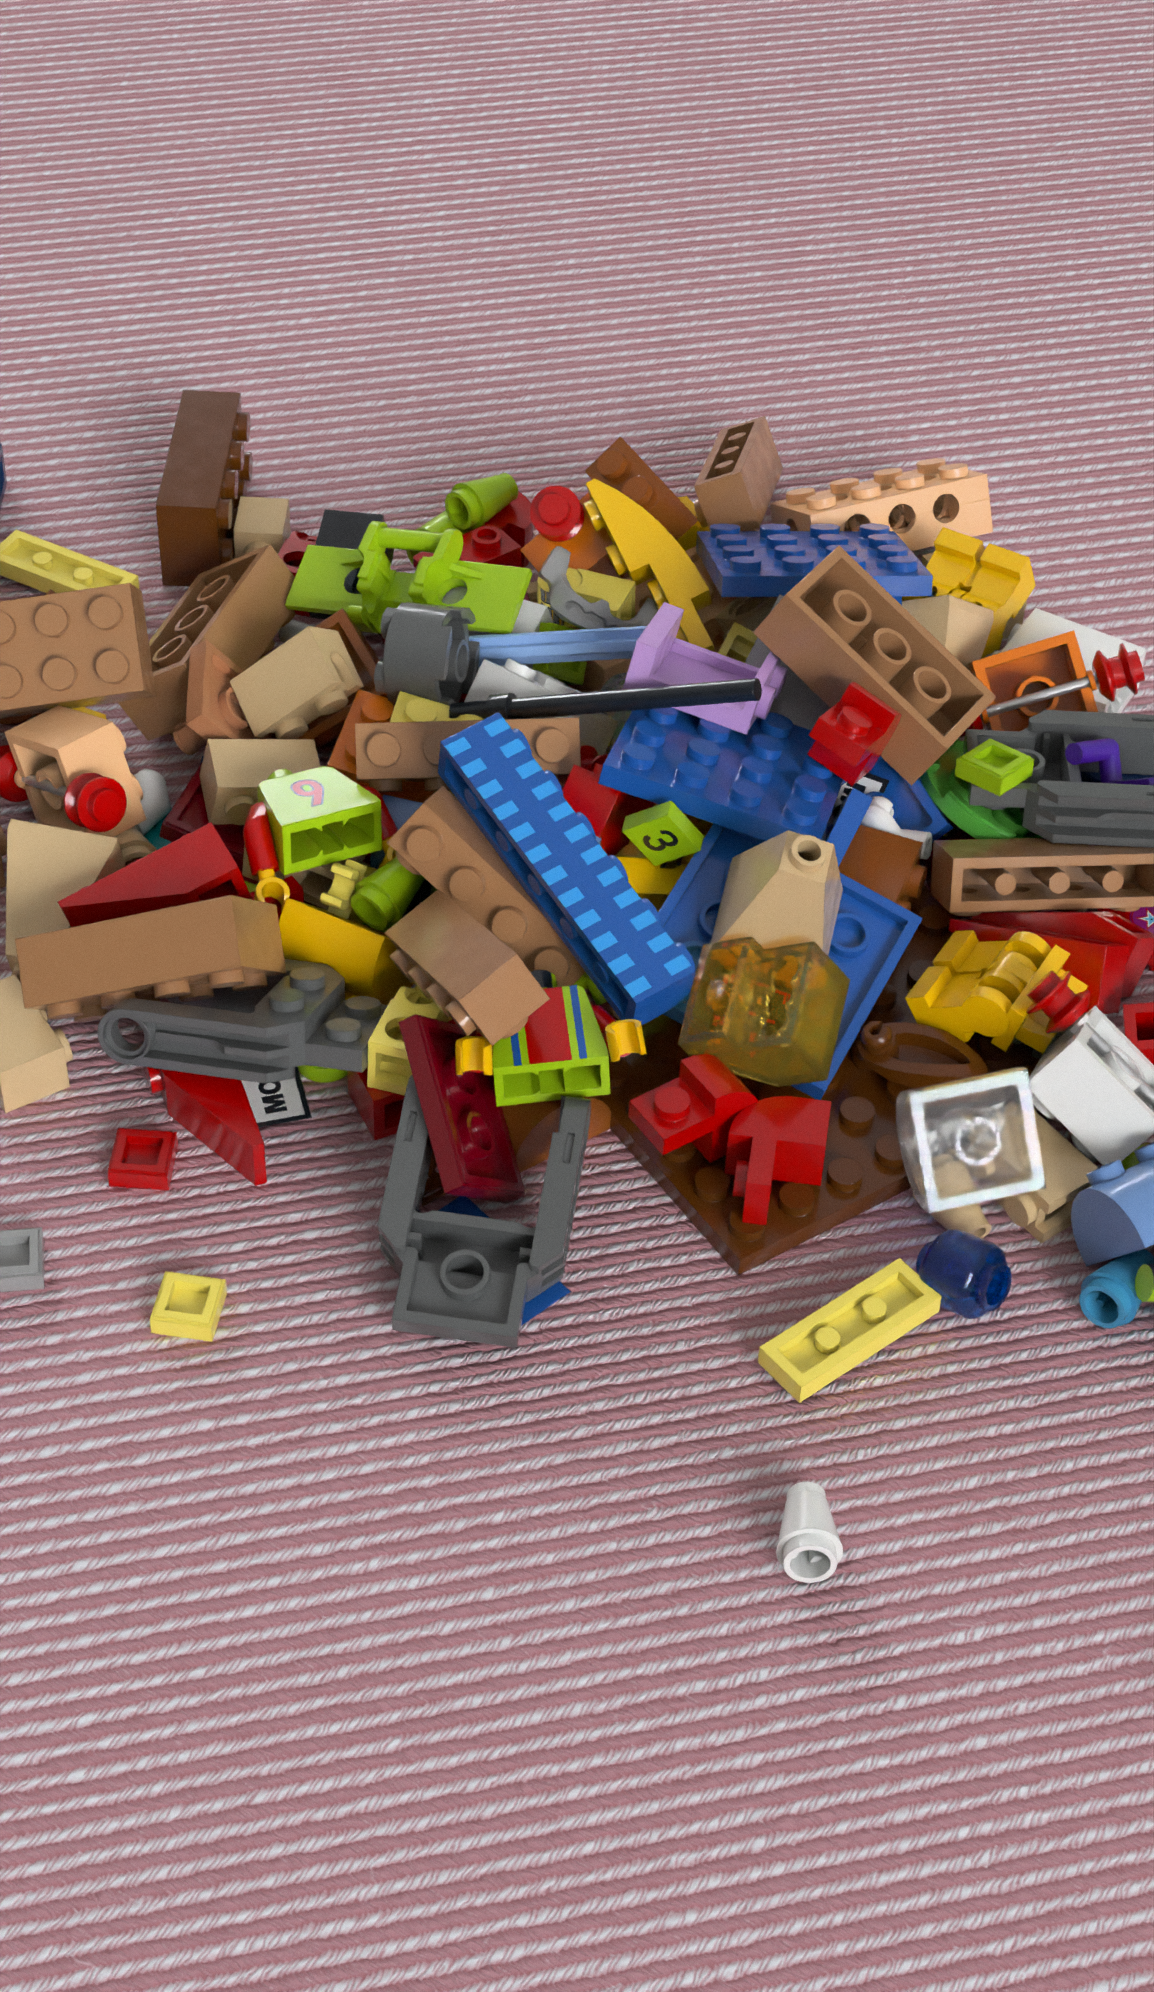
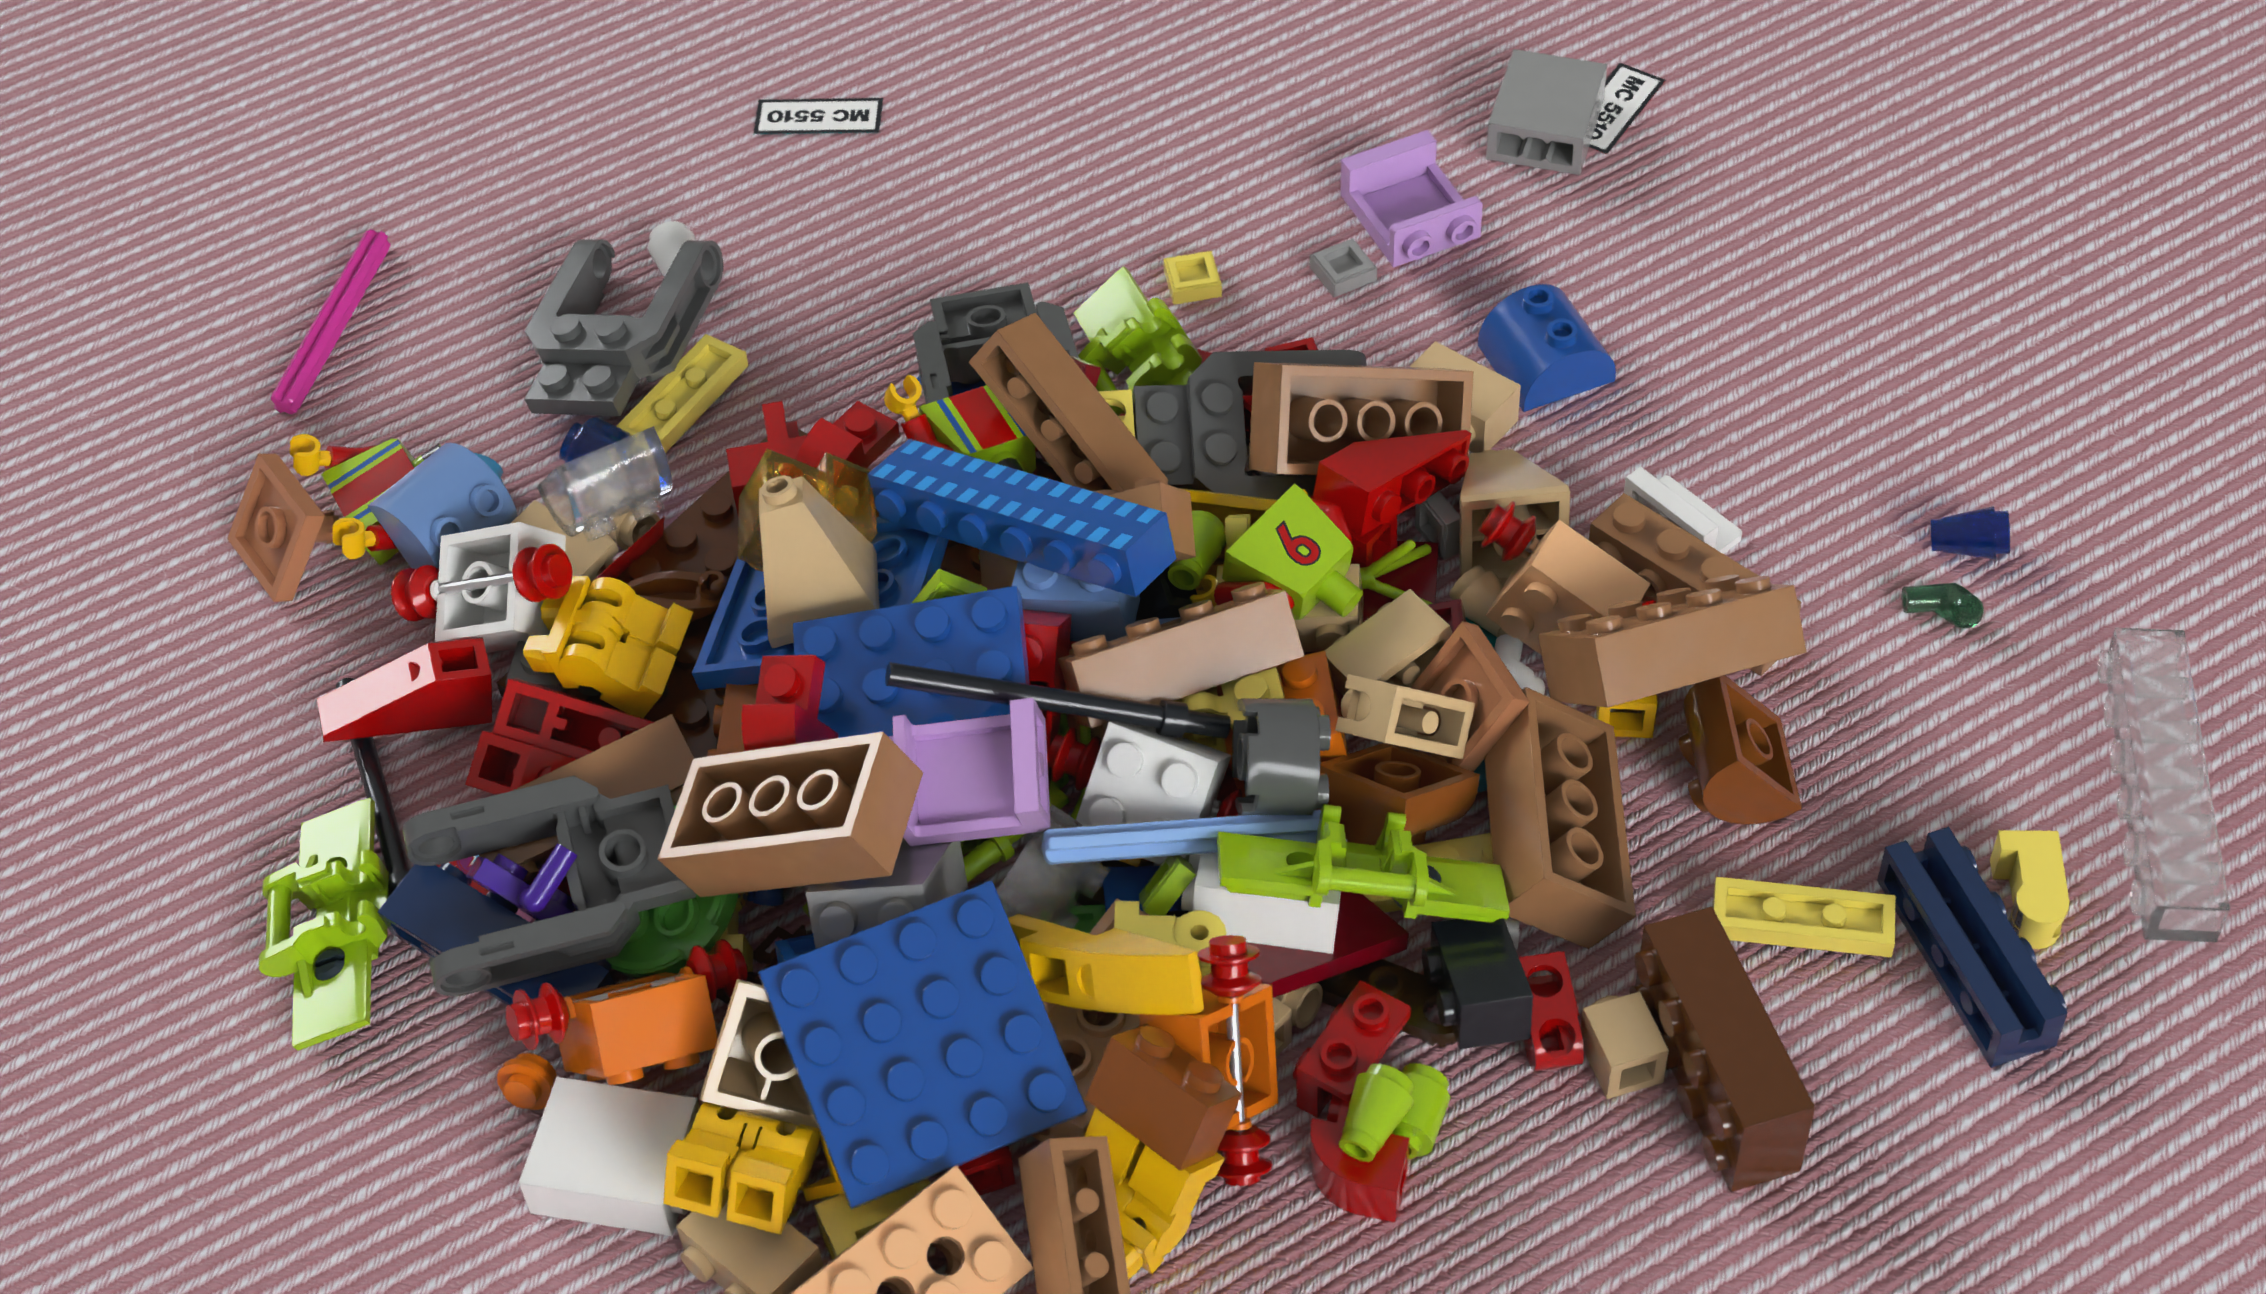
camera: 165 degrees right, 5 degrees up
(297, 1139) = (1136, 334): none -> lime piece
(540, 1750) = (818, 116): none -> sticker
(577, 610) = (1200, 905): light grey helmet -> none
(946, 1374) = (599, 359): none -> dark grey plate
(994, 767) = (645, 805): lime tile -> none

